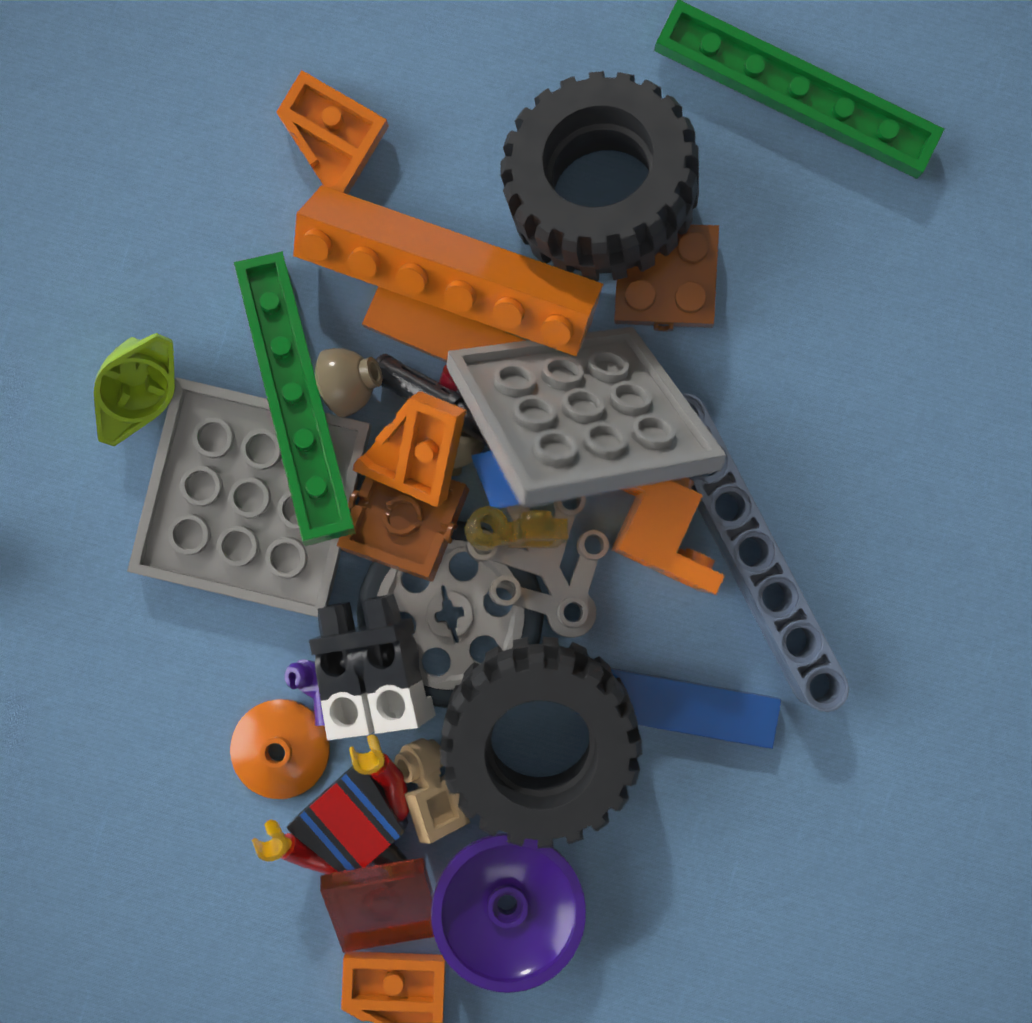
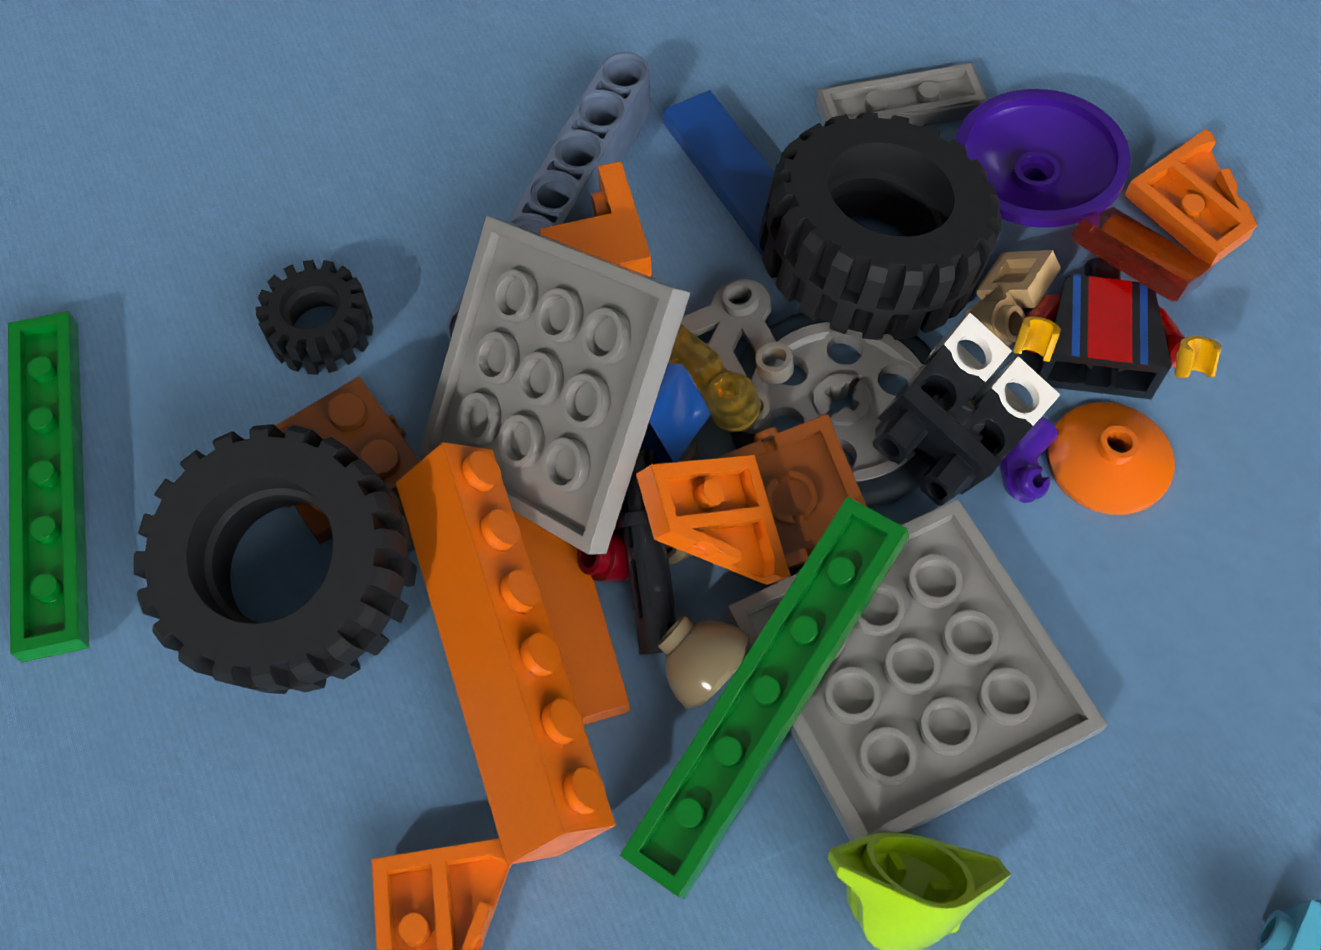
camera: 130 degrees left, 25 degrees down
(651, 880) = (922, 96): none -> light grey tile
(815, 314) = (307, 291): none -> black tyre

